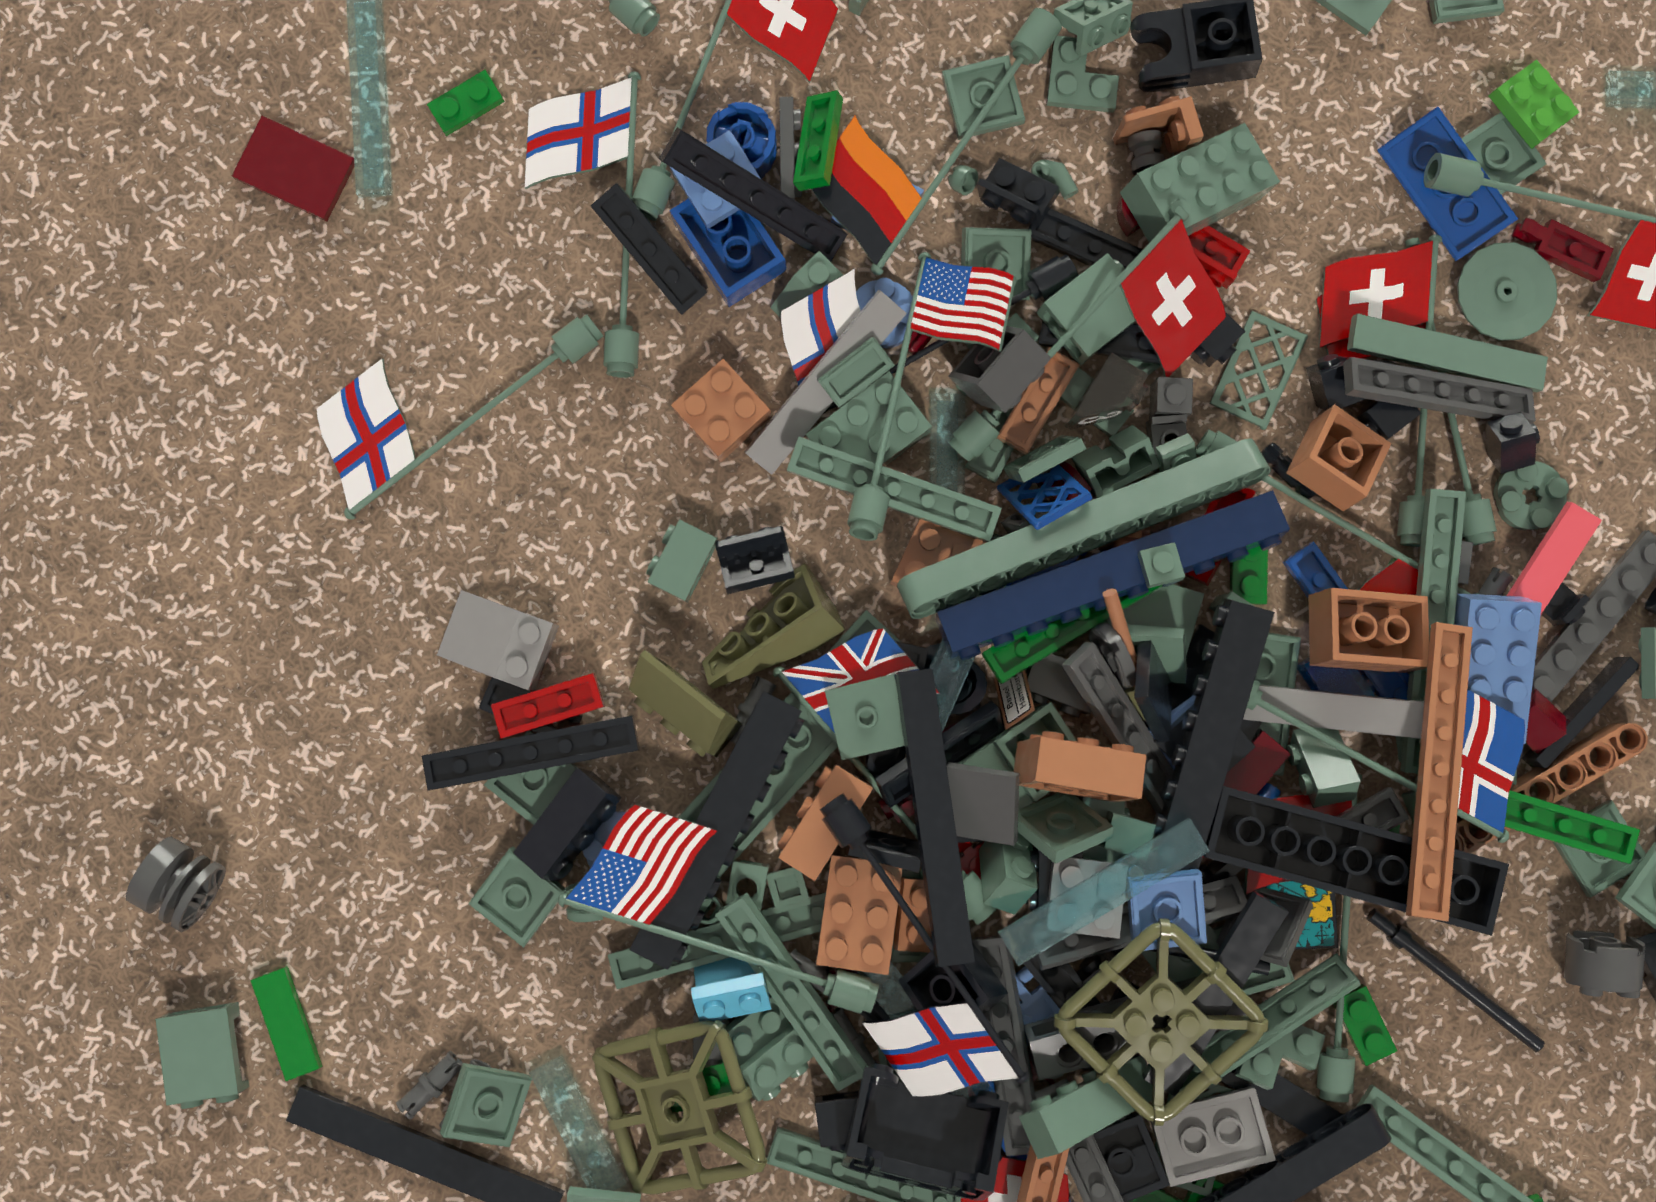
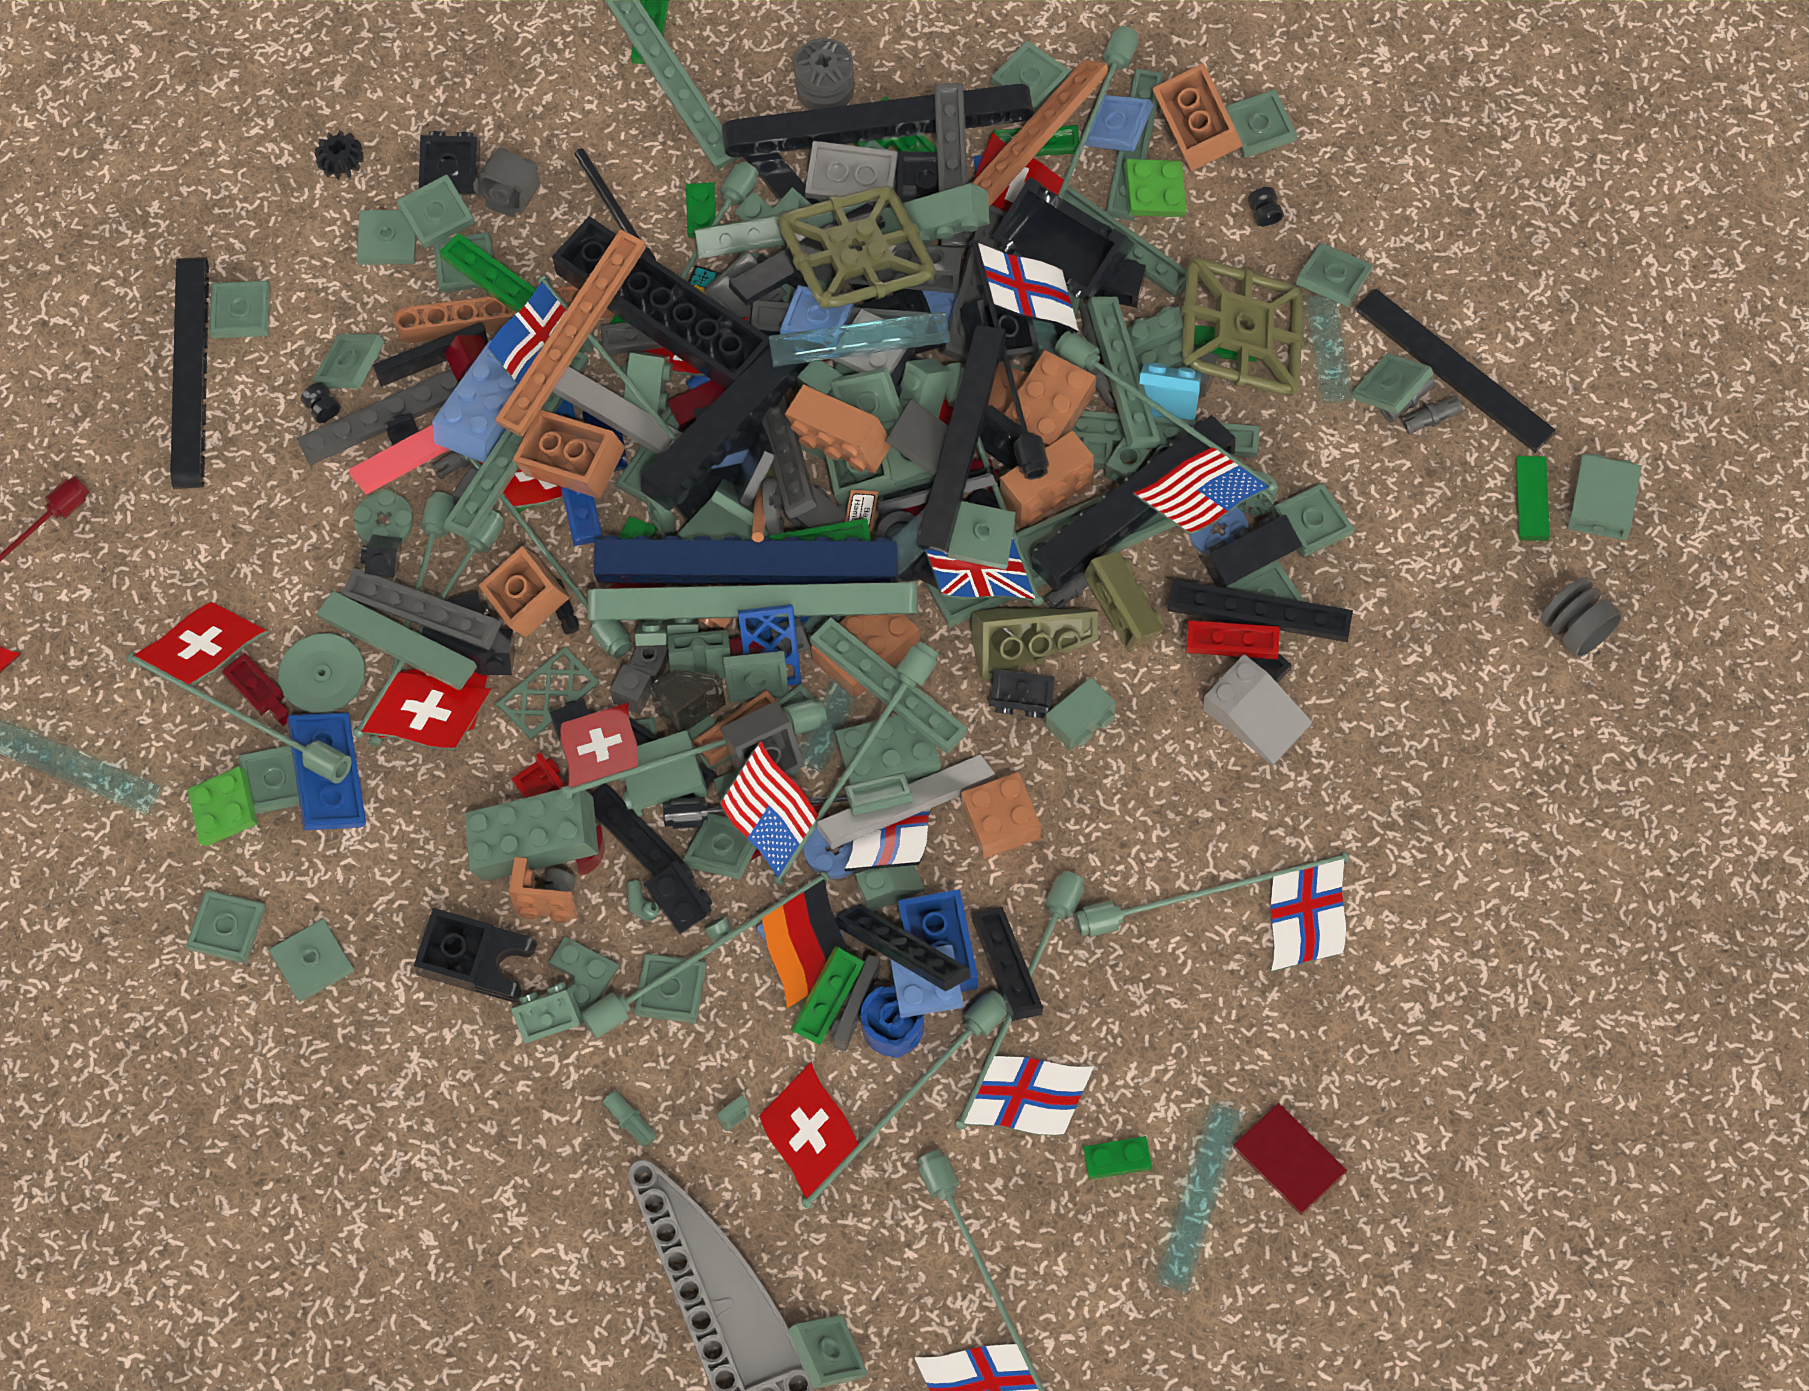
camera: 155 degrees left, 20 degrees down
(1161, 565) = (708, 545): sand green plate -> none

